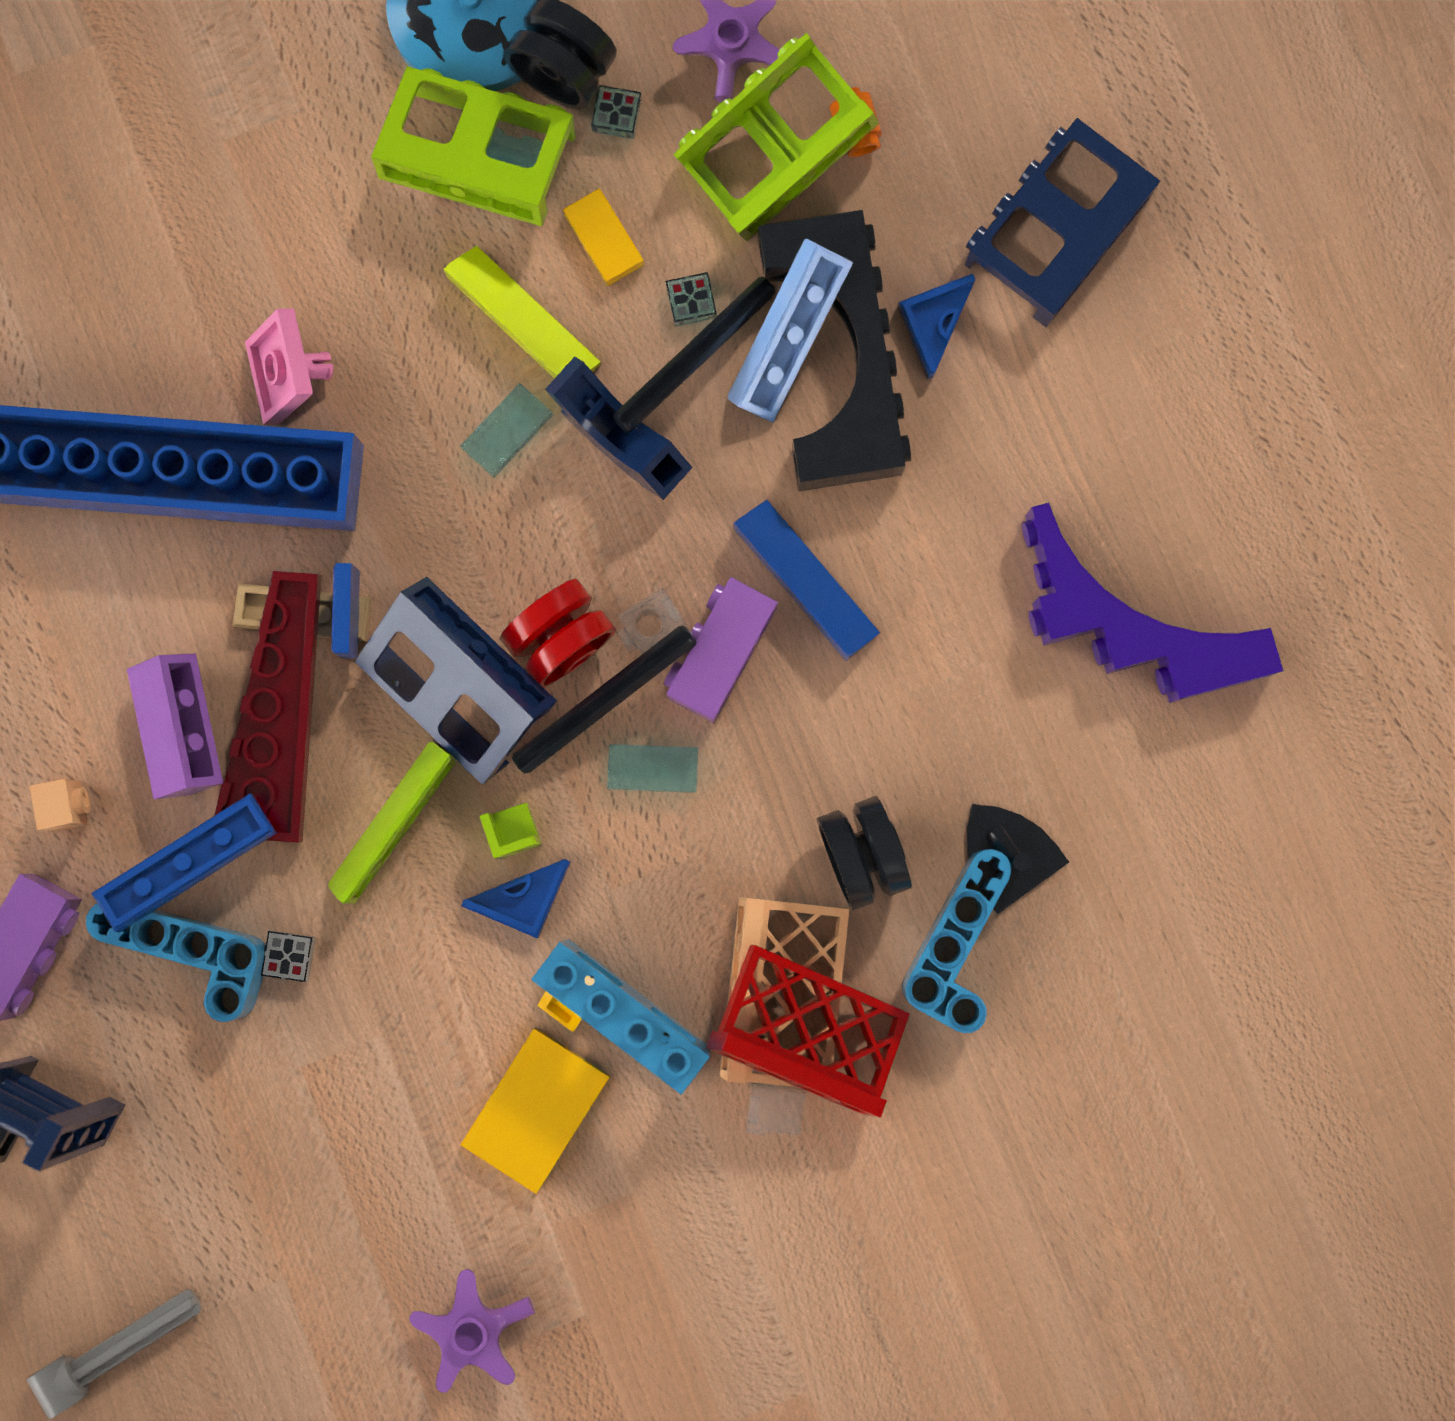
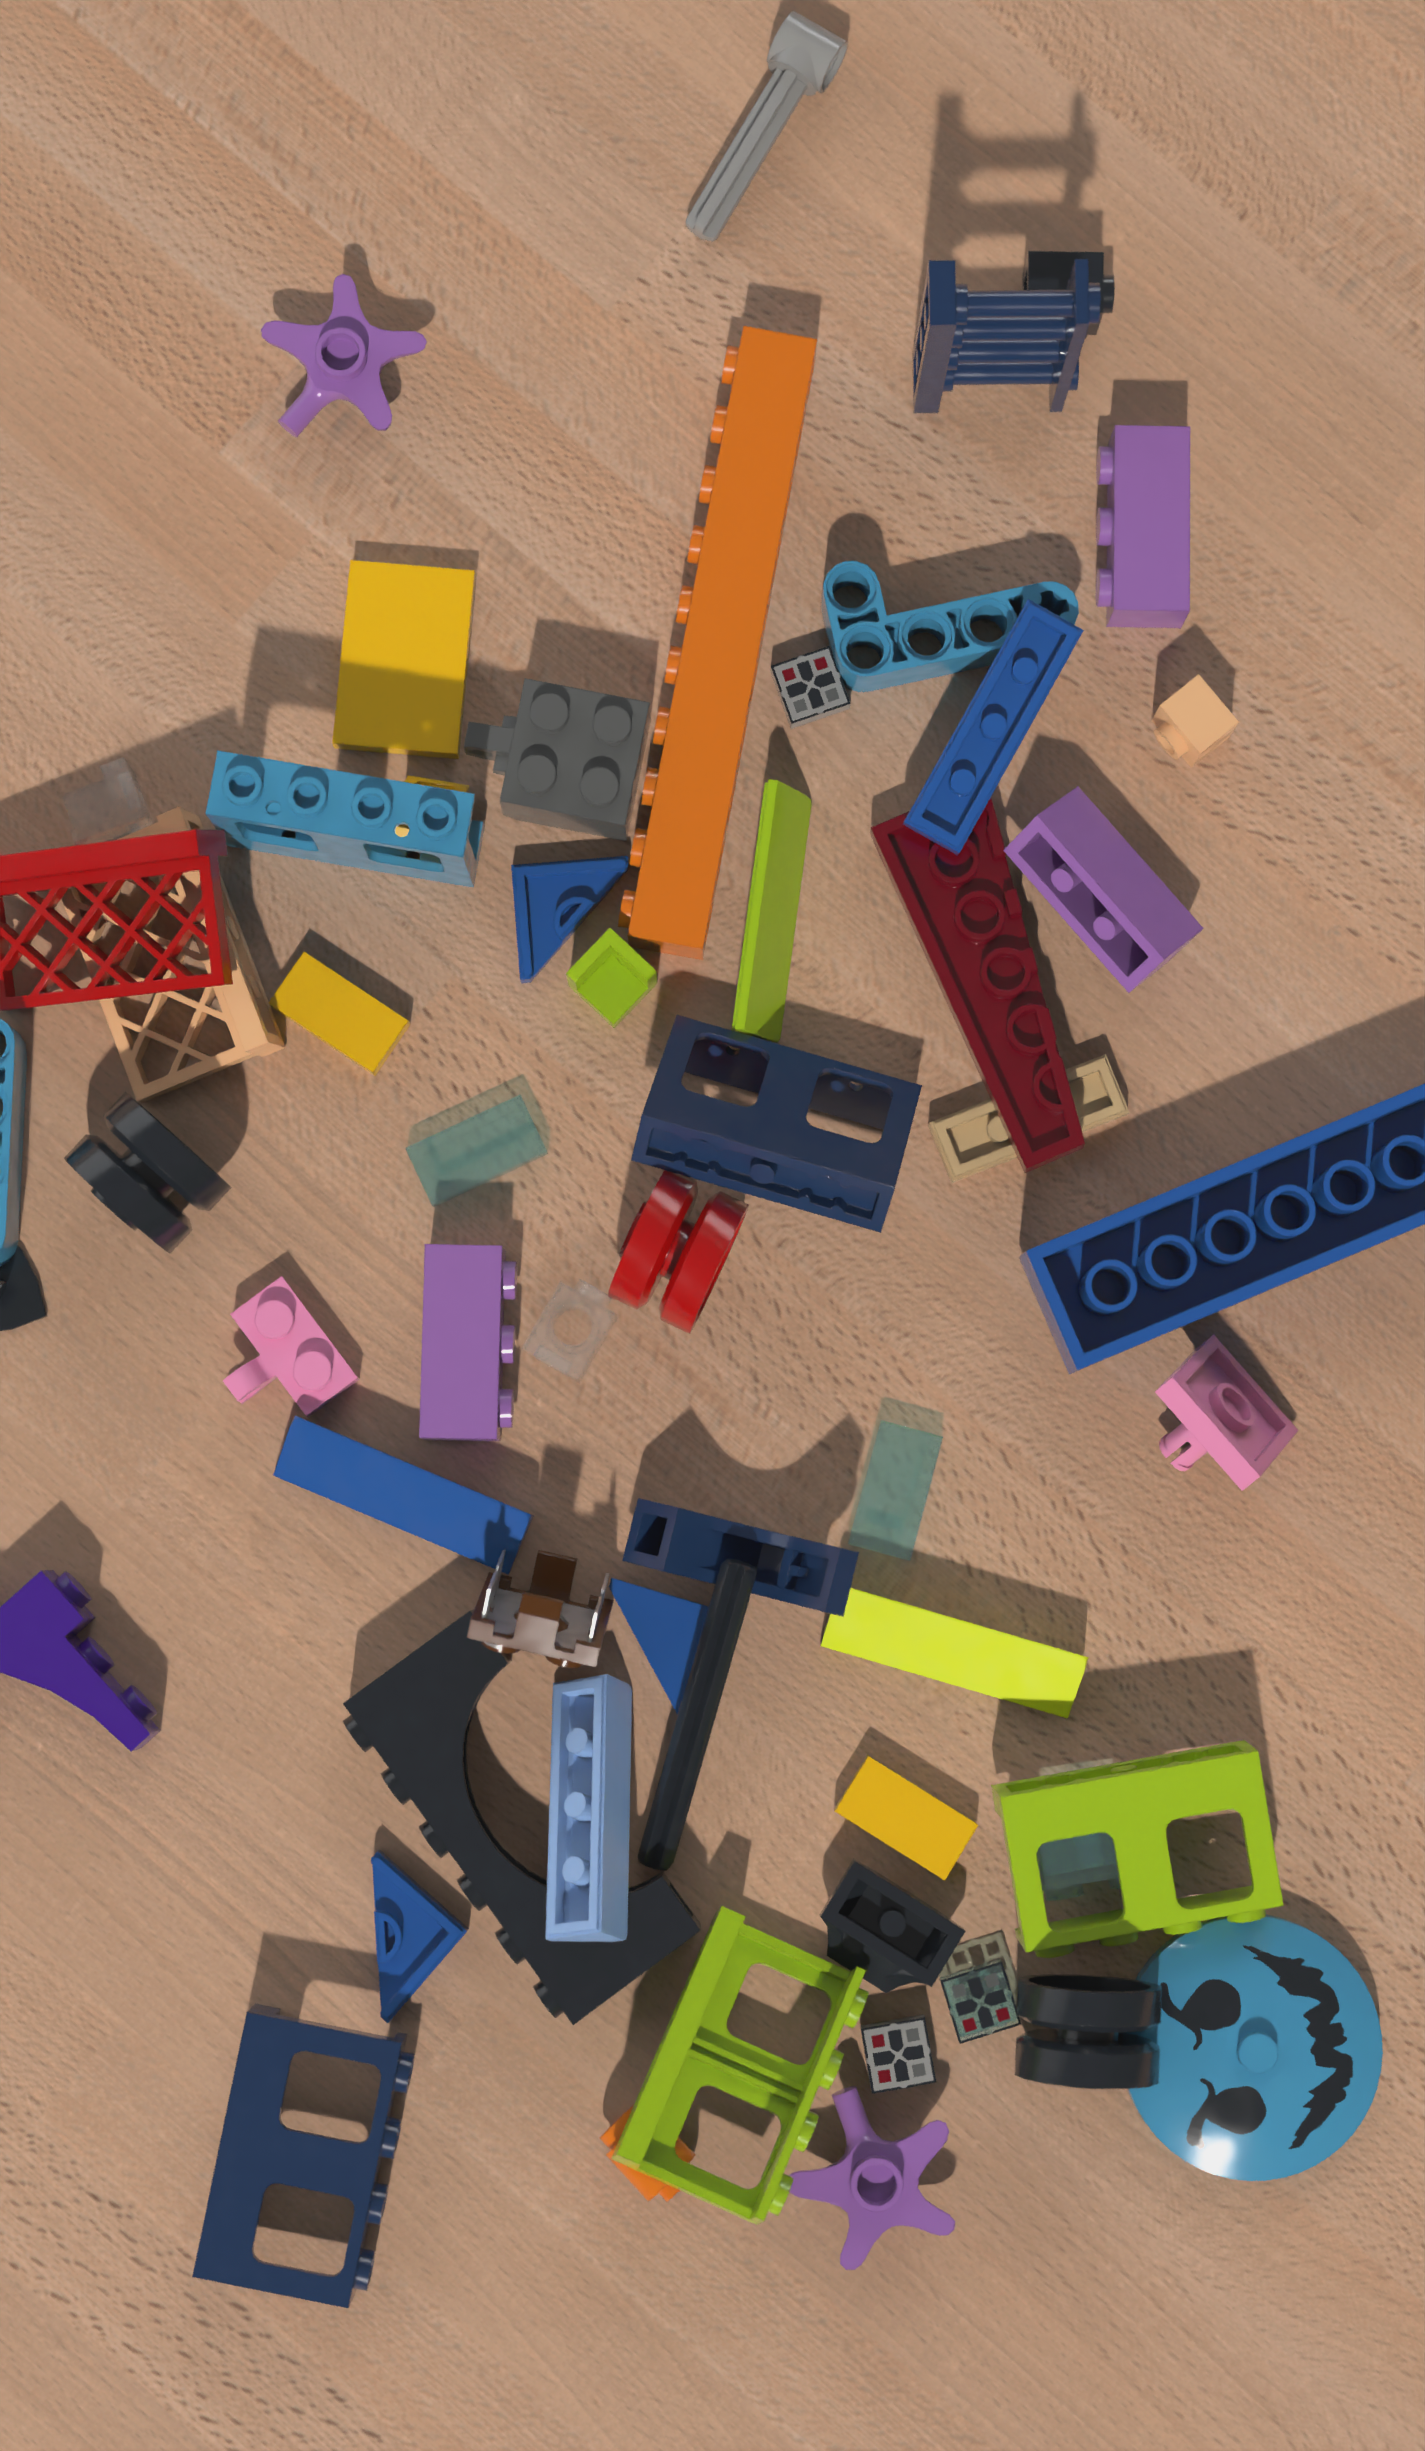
camera: 150 degrees right, 0 degrees up
(323, 1017) = (721, 643): none -> orange brick
(345, 610) = (966, 1141): blue tile -> none
(463, 986) = (567, 758): none -> dark grey hinge
(604, 699) = (576, 1204): black axle -> none
(647, 176) = (886, 1930): none -> black slope
(680, 106) = (898, 2054): none -> tile
(686, 414) = (666, 1631): none -> blue tile
(691, 299) = (745, 1792): tile -> none
(694, 900) = (339, 1013): none -> yellow tile
(760, 456) = (544, 1616): none -> reddish brown piece
(830, 703) = (289, 1349): none -> bright pink plate

